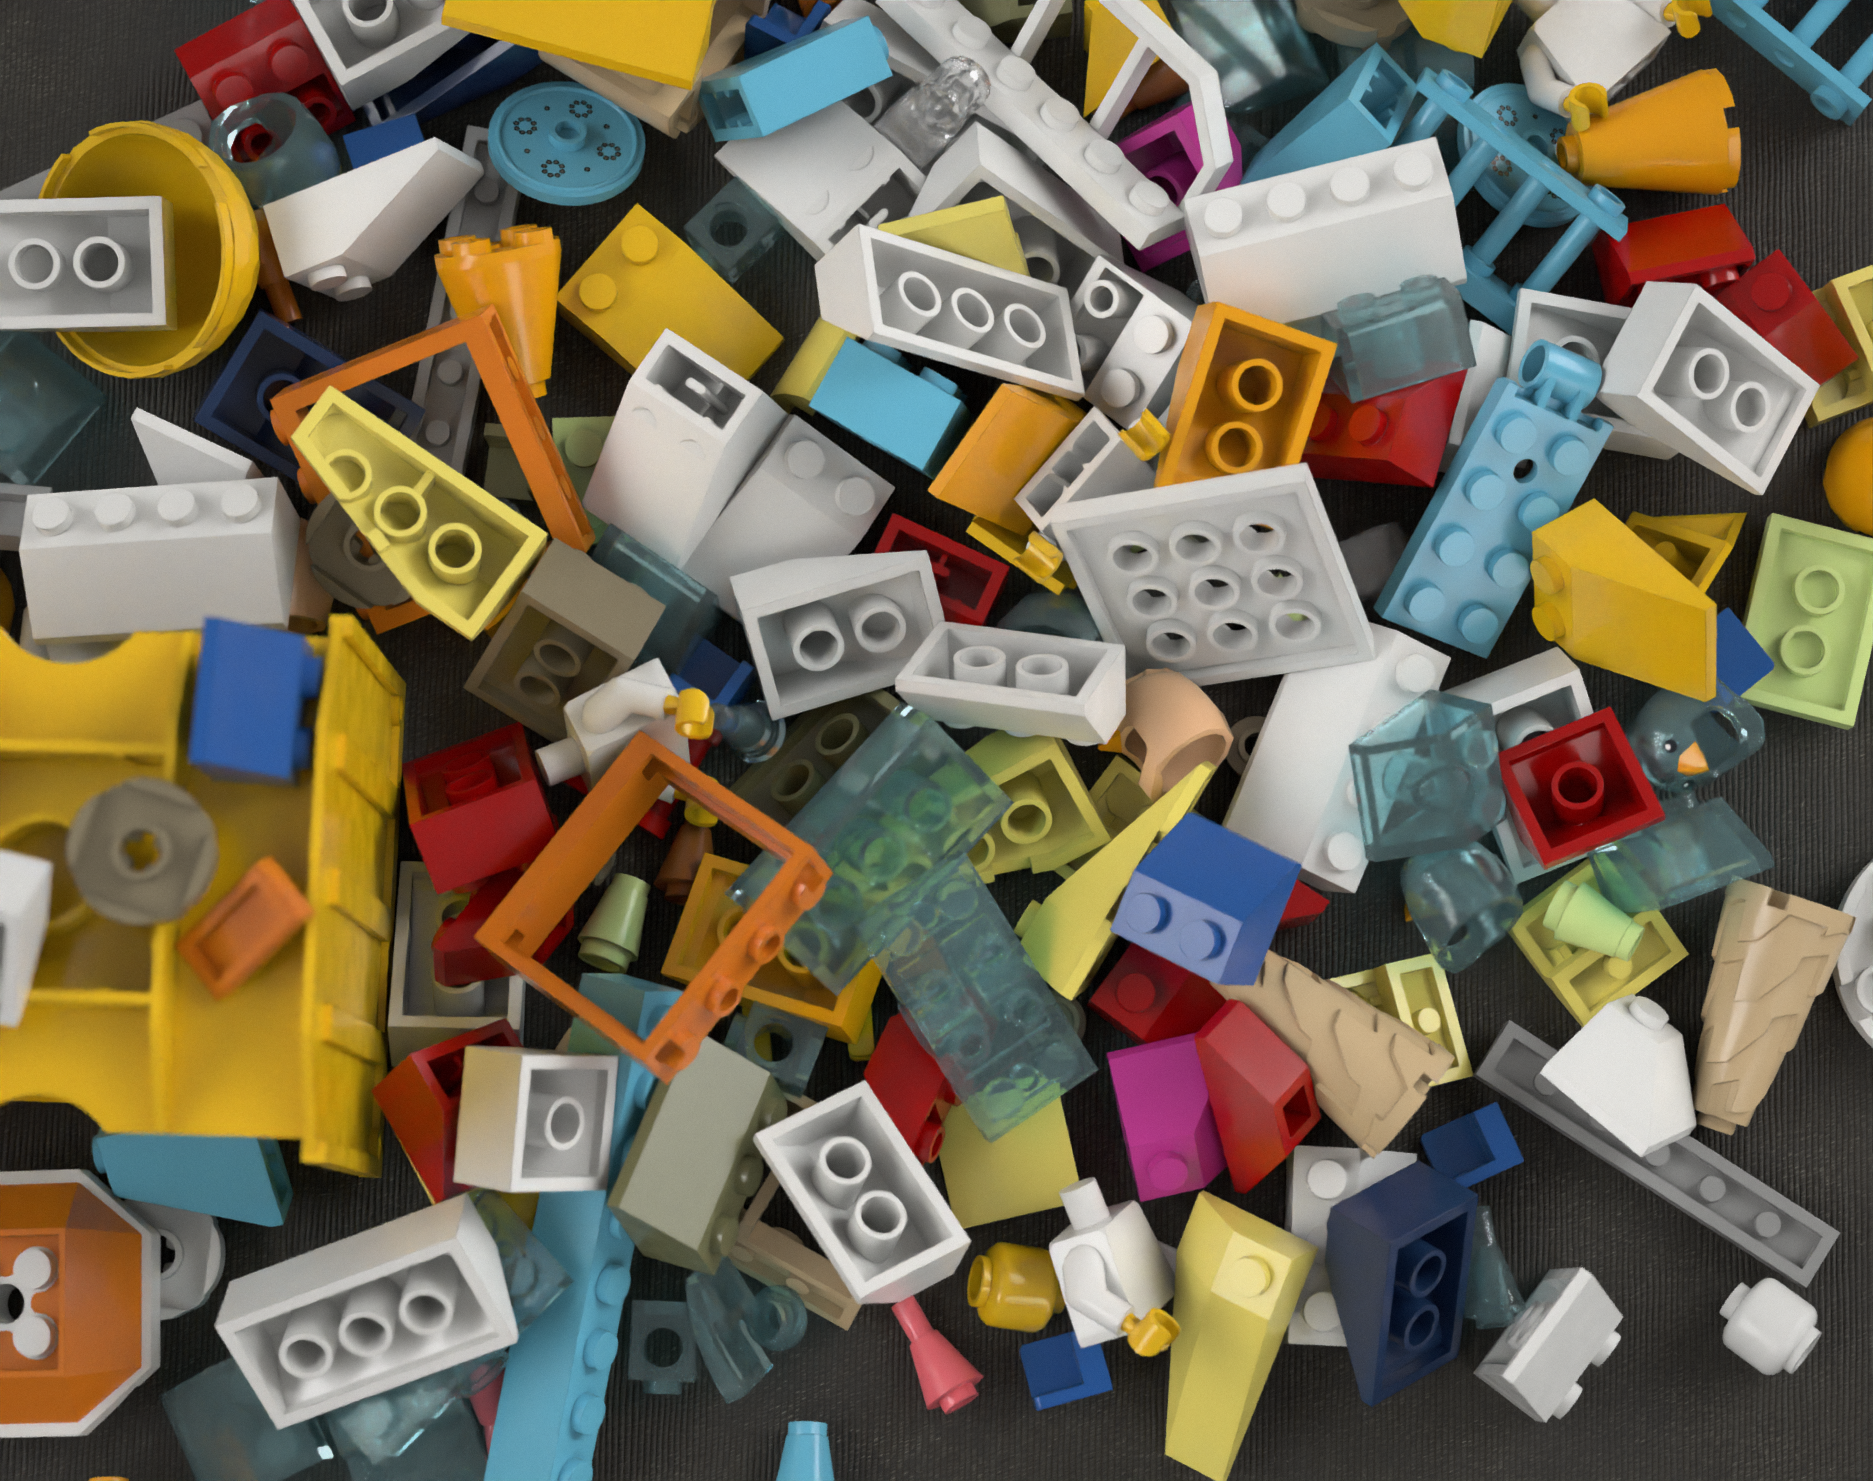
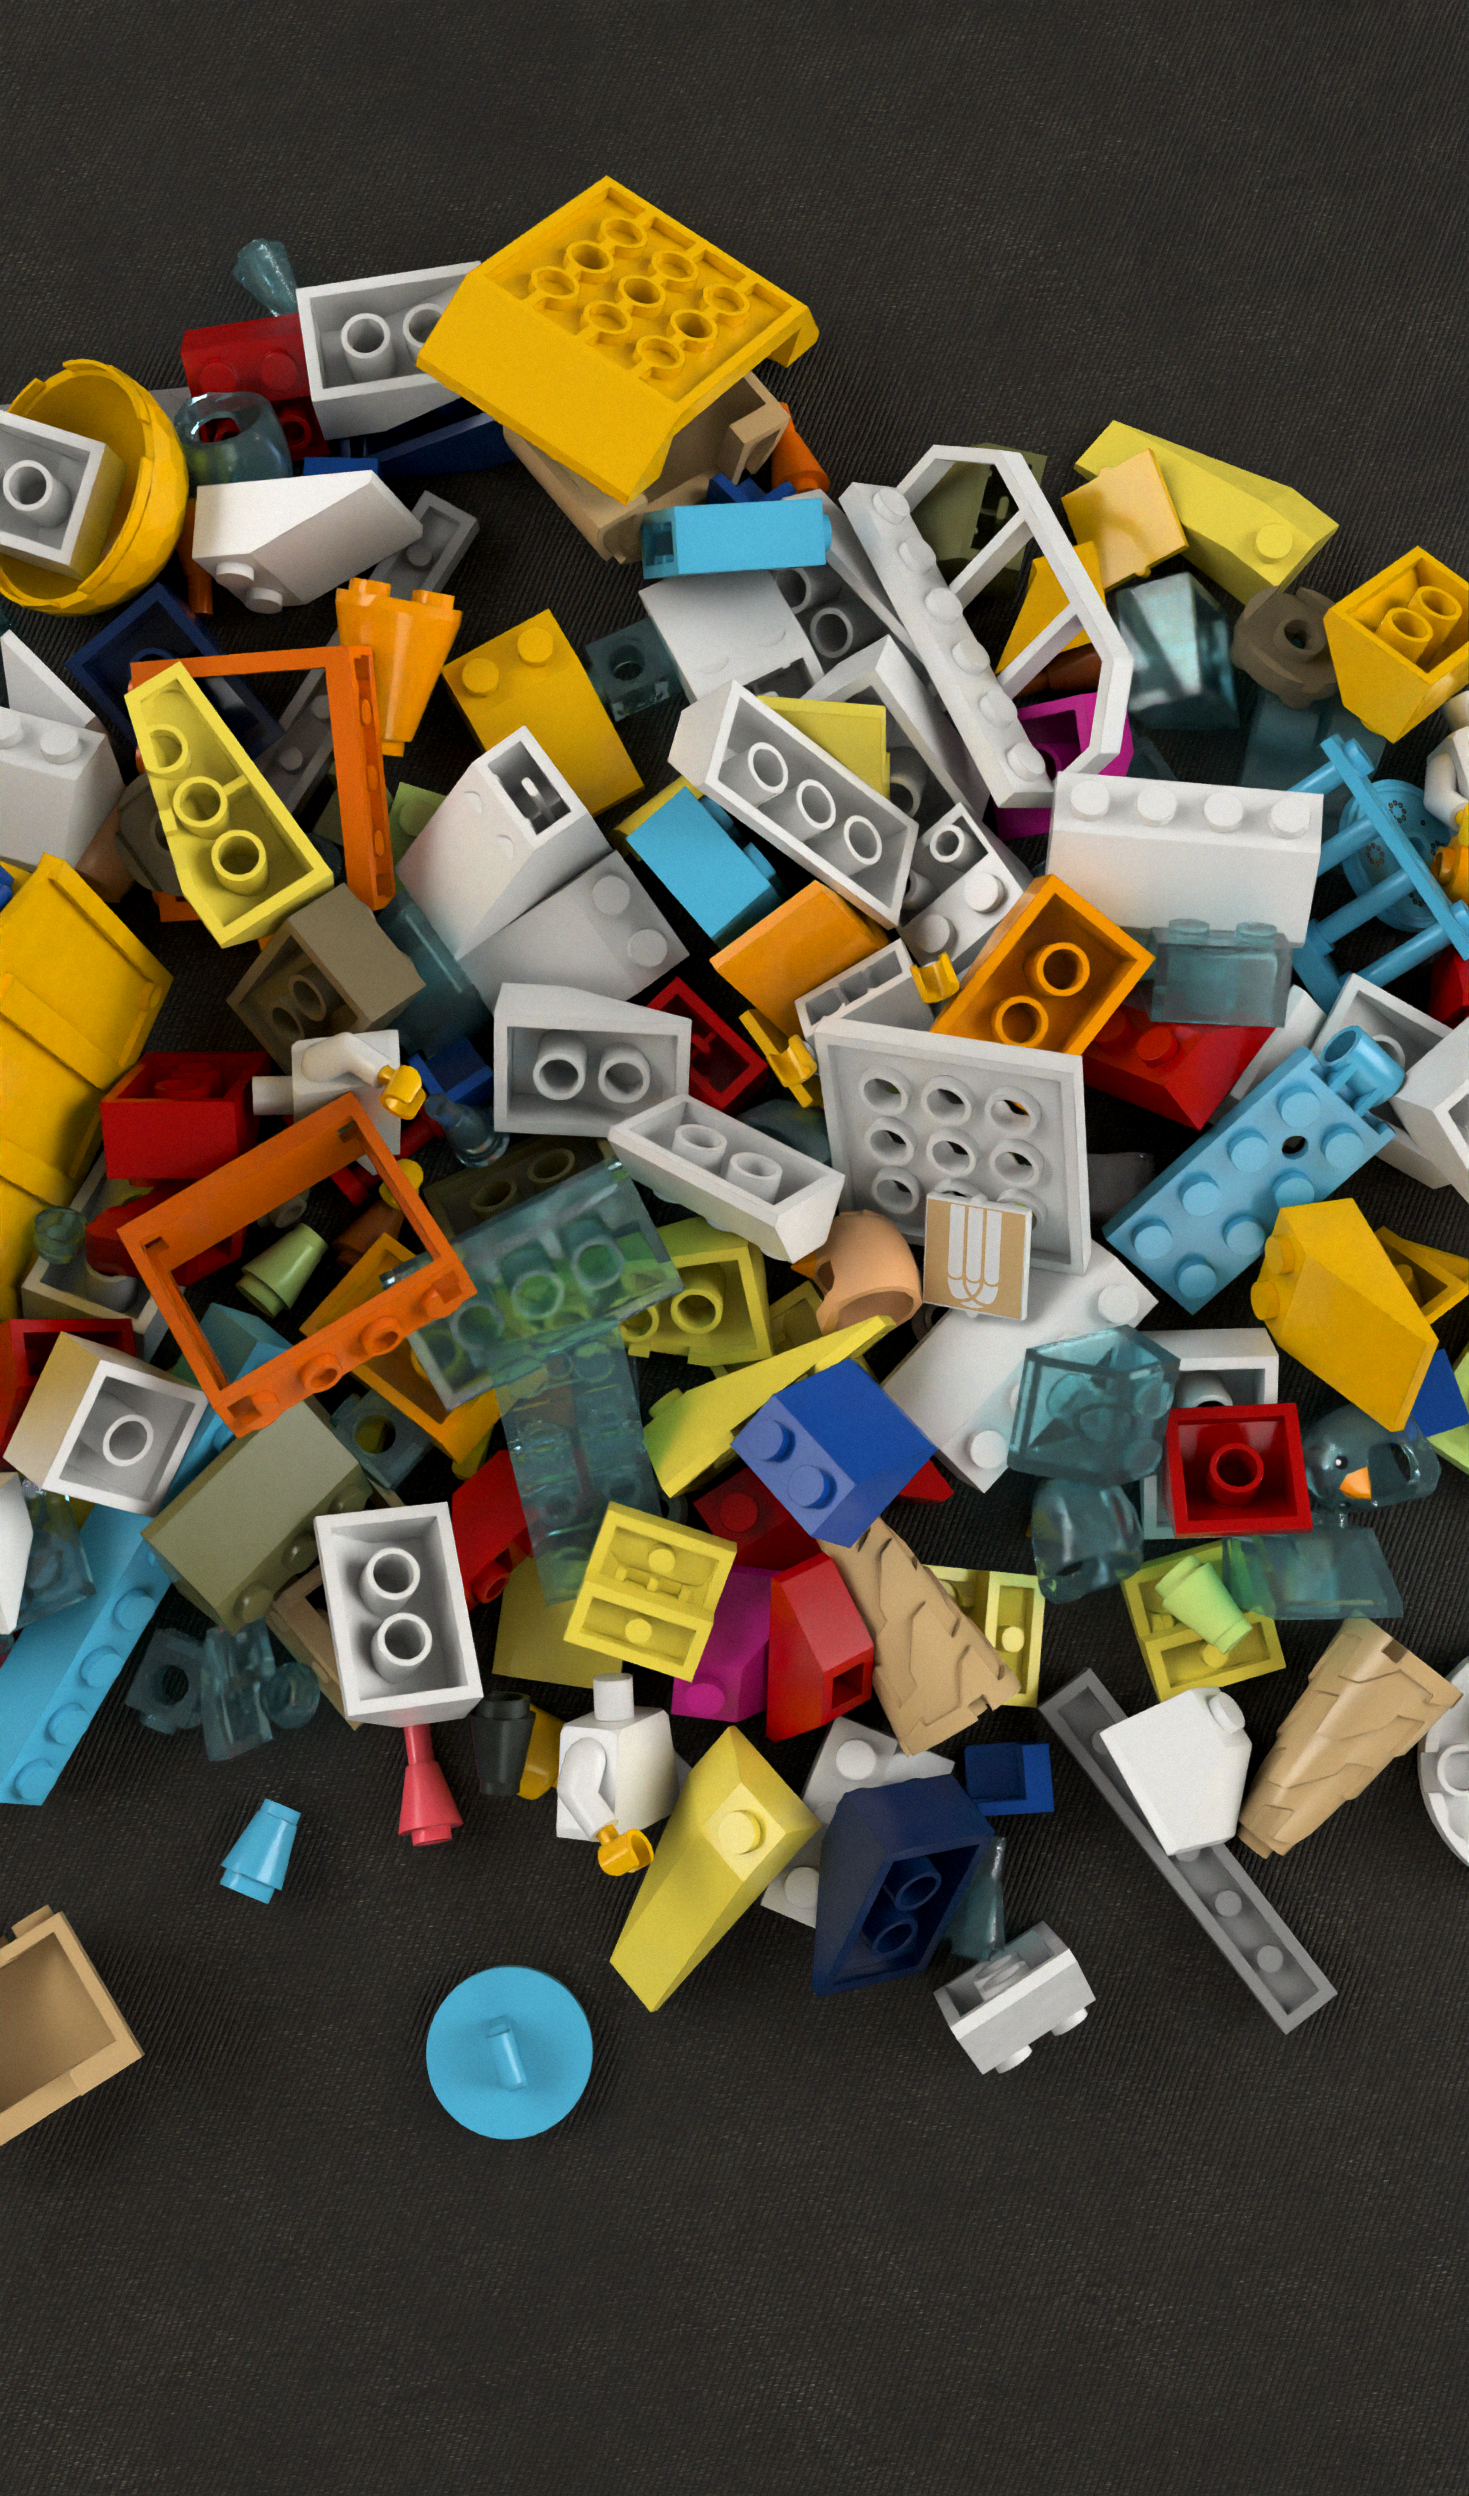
camera: 25 degrees right, 0 degrees up
(406, 964) = (59, 1234): none -> clear light blue hinge
(565, 144) = (507, 537): medium azure shield -> none
(935, 109) = (856, 614): clear piece -> none
(996, 1280) = (501, 1740): none -> pearl dark grey cone
(1063, 1371) = (535, 1850): blue panel -> none
(1084, 1092) = (650, 1591): none -> light yellow slope
(1269, 675) = (977, 1255): none -> piece
(1346, 120) = (1250, 754): medium azure slope -> none
(1769, 1326) = (1236, 2059): white head -> none

